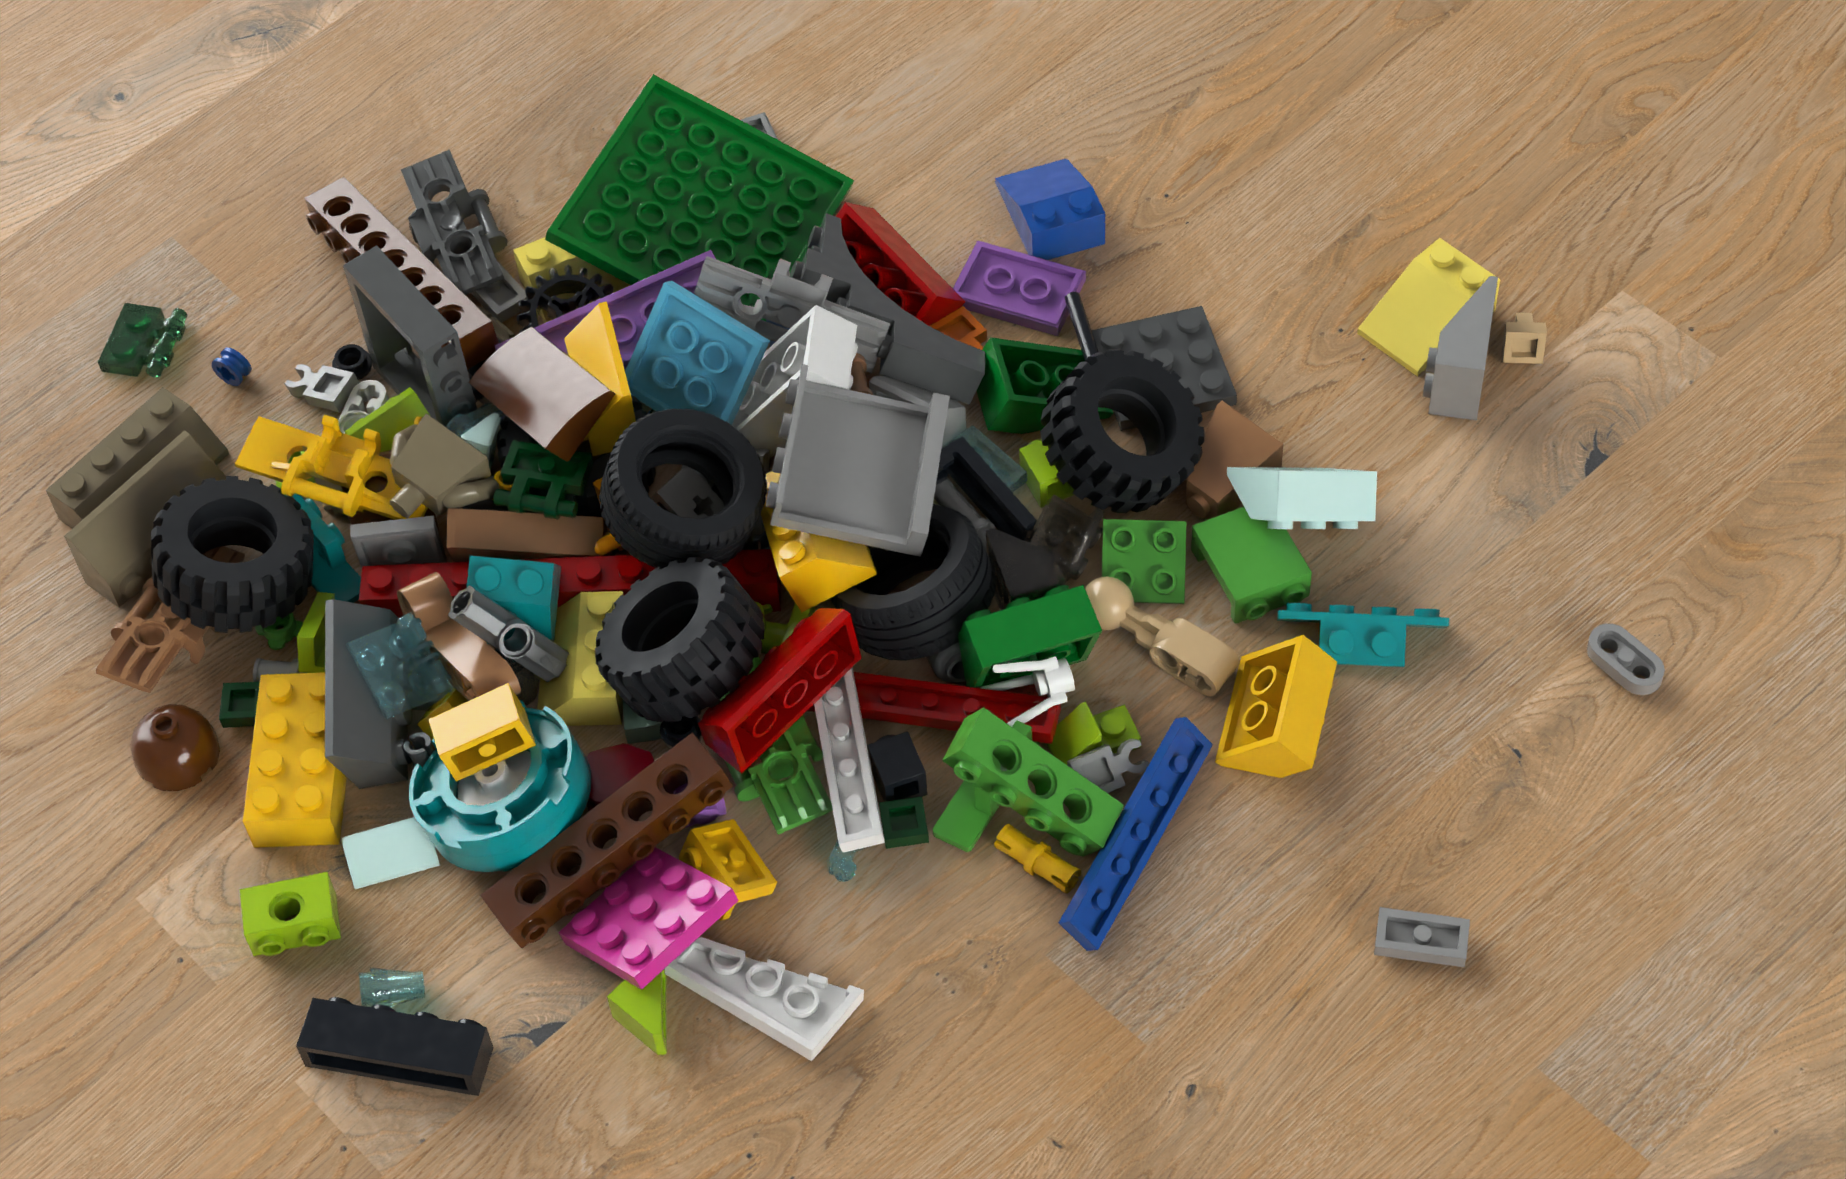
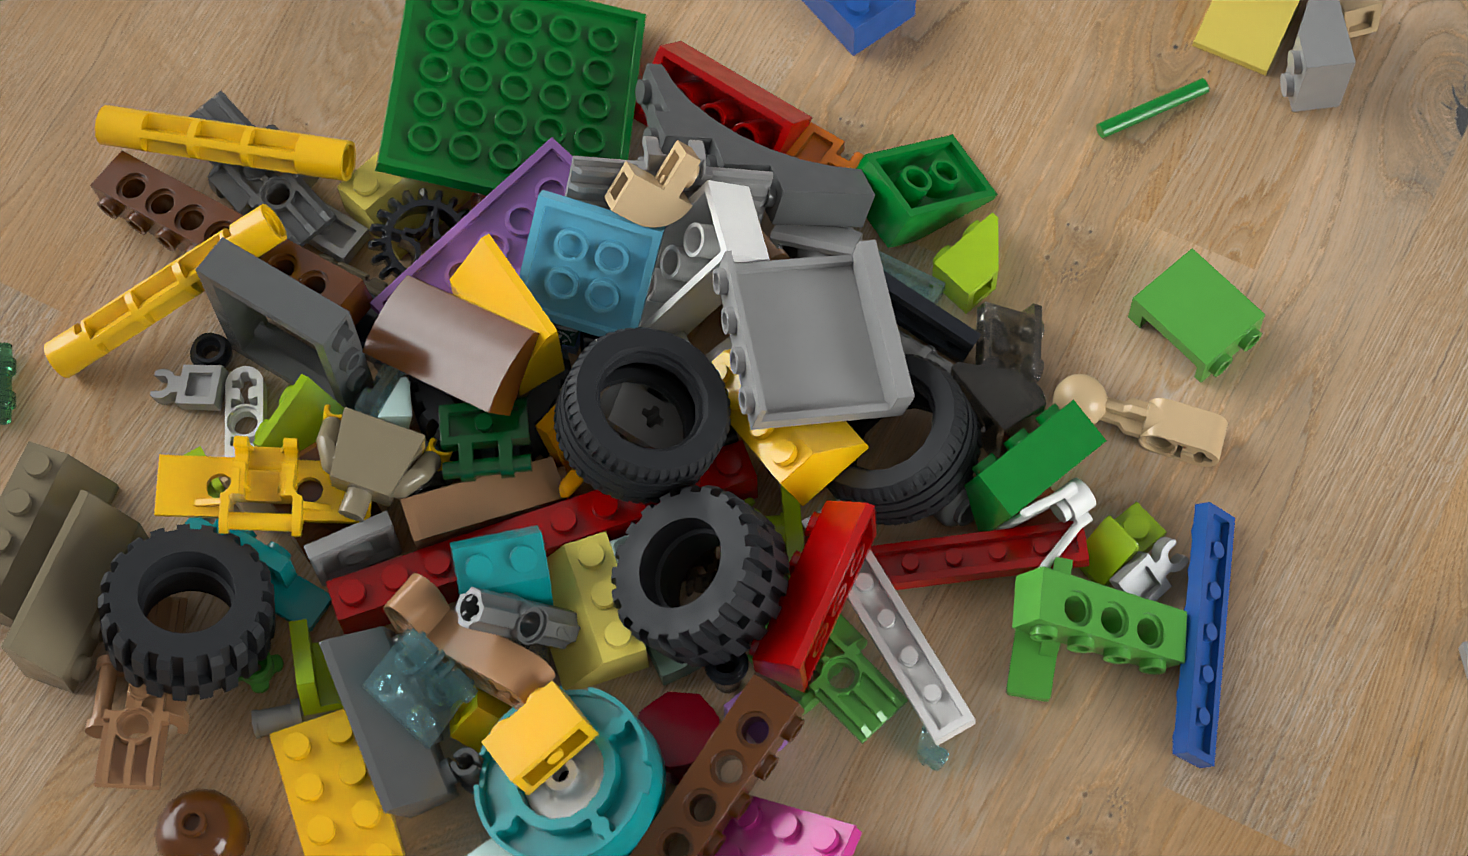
camera: 20 degrees left, 10 degrees up
(231, 366) = (85, 392): blue bush -> none
(238, 704) = (254, 765): dark green plate -> none
(314, 298) = (156, 295): none -> yellow piece
(431, 189) = (226, 142): none -> yellow piece
(730, 858) = (821, 786): yellow bracket -> none
(762, 311) = (657, 198): none -> tan brick
(897, 767) = (950, 634): black brick -> none
(904, 822) = (979, 688): dark green plate -> none
(1018, 287) = (852, 85): medium lavender tile -> none
(1037, 858) = (1118, 688): yellow pin -> none
(1081, 324) = (946, 128): black bar -> none
(1146, 558) = (1095, 341): bright green hinge -> none
(1151, 401) = (1064, 195): black tyre -> none
(1184, 345) = (1025, 133): dark grey plate -> none
(1229, 442) = (1134, 218): medium nougat slope -> none
(1277, 709) = (1283, 465): yellow slope -> none
(1293, 375) = (1152, 108): none -> green bar
(1306, 495) = (1228, 234): light aqua slope -> none
(1363, 638) = (1332, 364): teal bracket -> none

